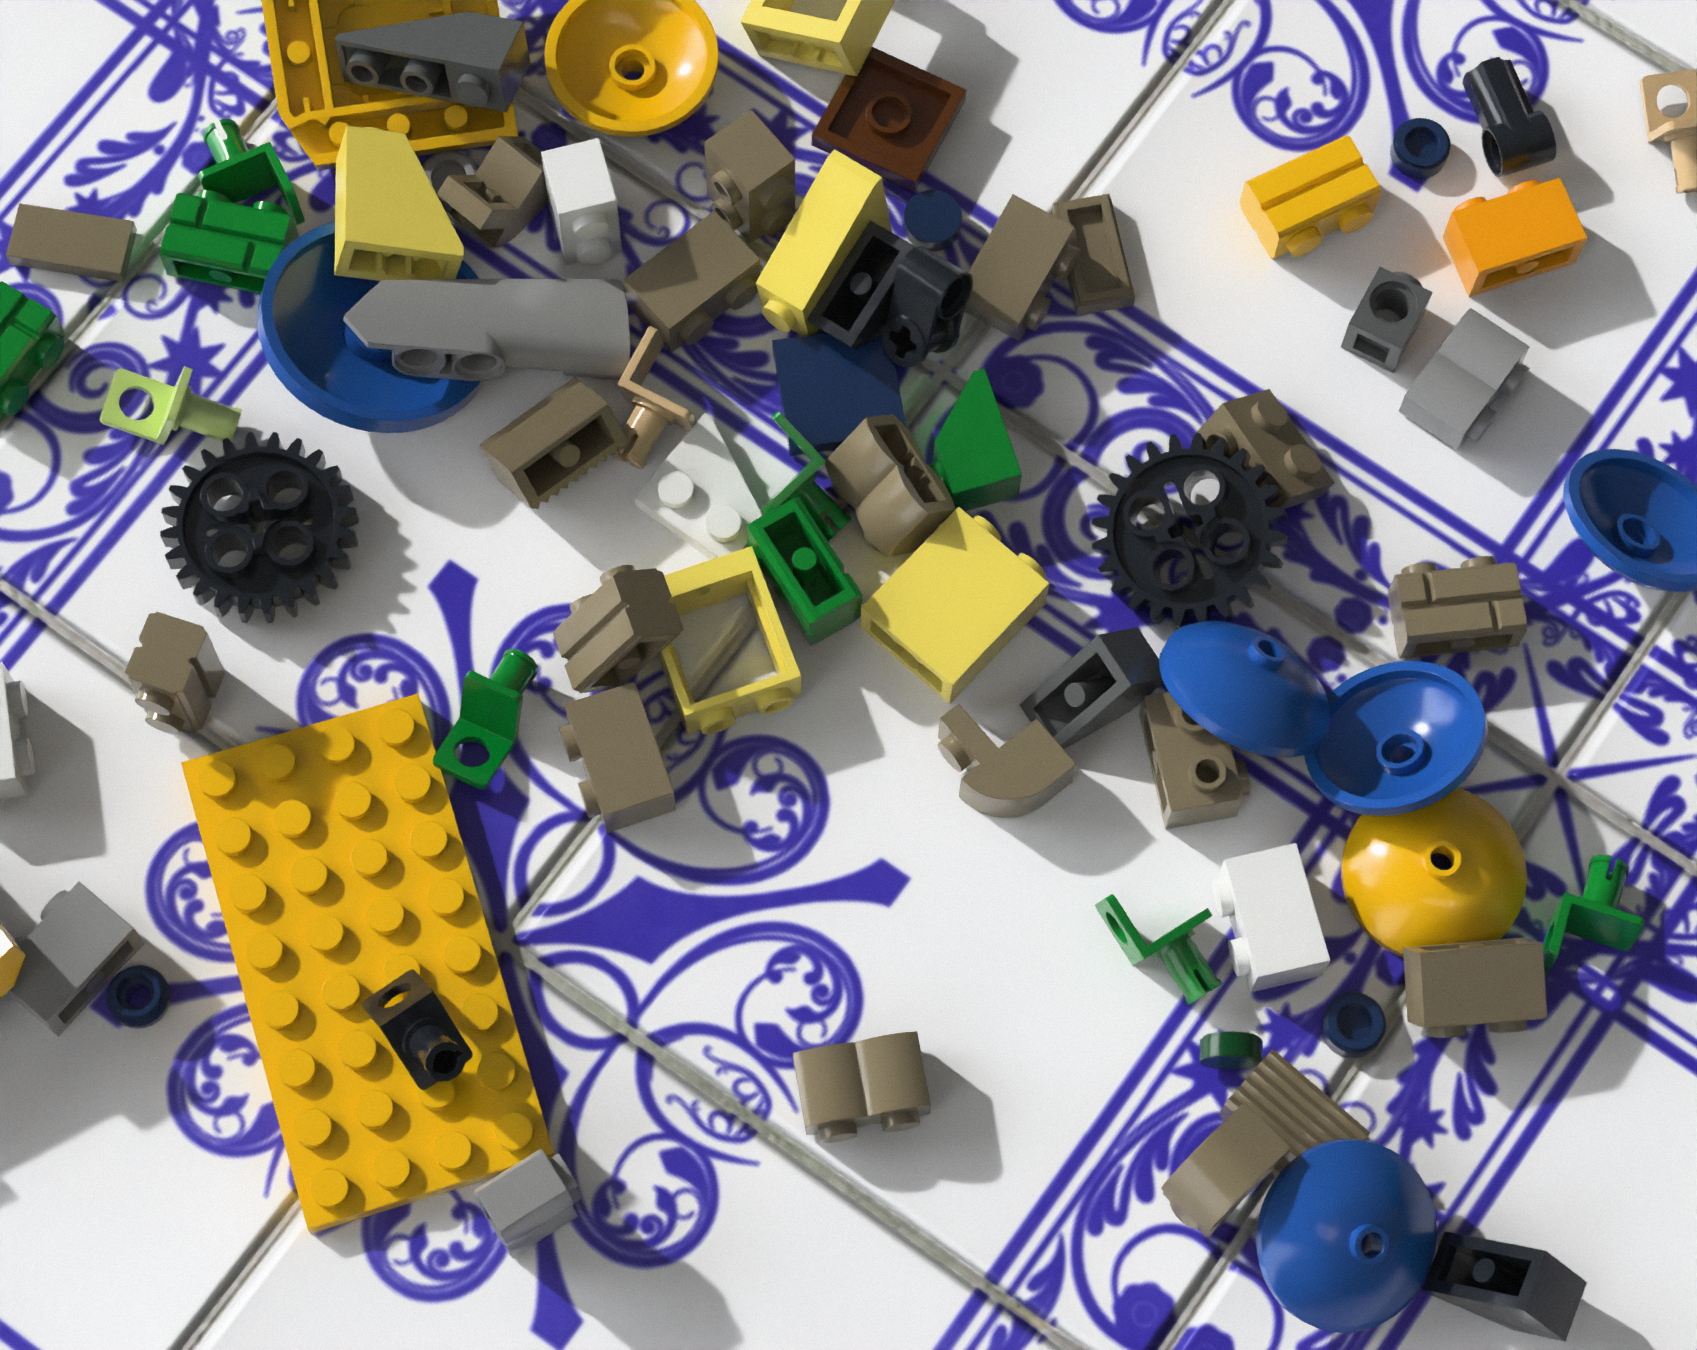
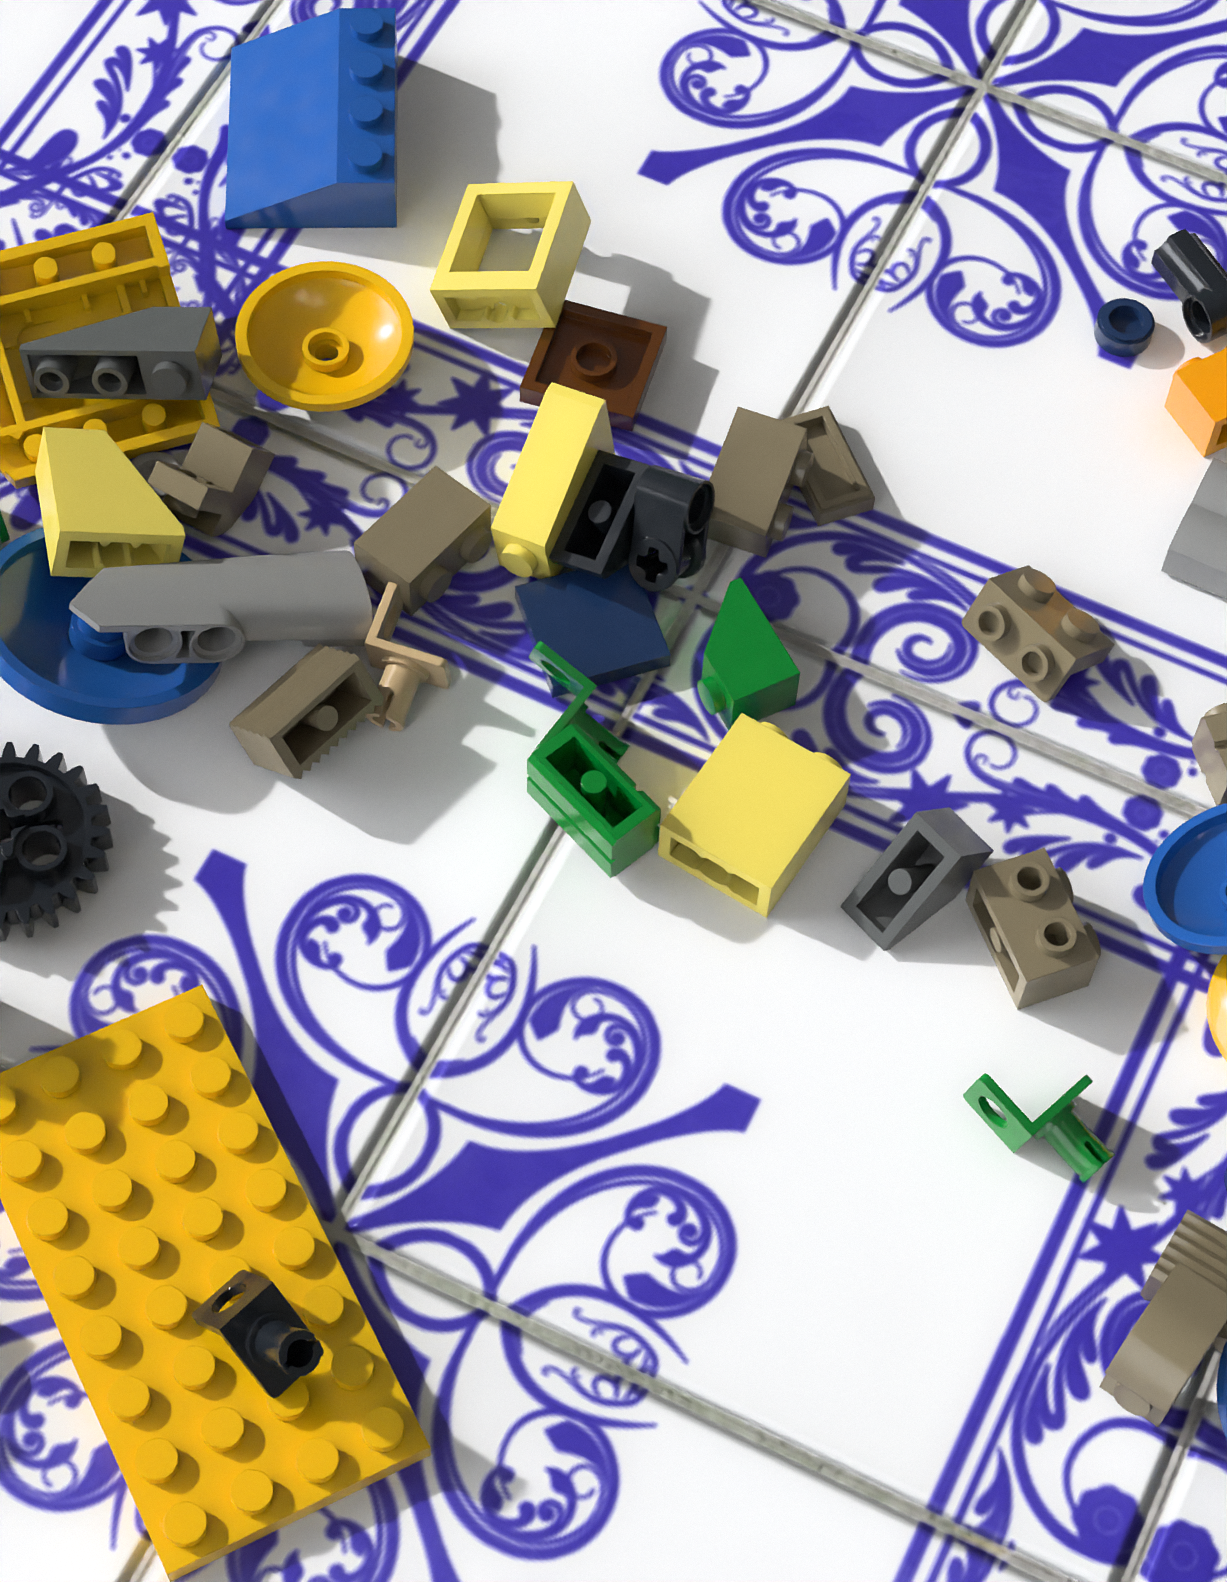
camera: 10 degrees left, 10 degrees down
(489, 717) = (281, 998): green bracket -> none
(529, 1200) = (413, 1498): light grey brick -> none
(582, 202) = (298, 475): white brick -> none
(617, 628) = (407, 882): dark tan brick -> none
(618, 757) = (429, 1017): dark tan brick -> none
(701, 494) = (470, 748): white wing -> none
(710, 584) = (492, 831): light yellow window -> none
(750, 177) = (467, 427): dark tan brick -> none
(862, 1085) = (755, 1319): dark tan brick -> none
(889, 485) = (664, 705): dark tan brick -> none
(932, 220) = (657, 446): dark blue tile -> none
(1007, 778) = (840, 979): dark tan brick -> none
(1231, 1050) = (1141, 1221): dark green tile -> none
(1237, 508) = (1029, 676): black gear -> none
(1245, 688) = (1077, 845): blue dish -> none
(1271, 918) = (1152, 1078): white brick -> none
(1311, 198) = (1030, 383): yellow brick -> none
(1384, 340) = (1125, 501): dark grey brick -> none

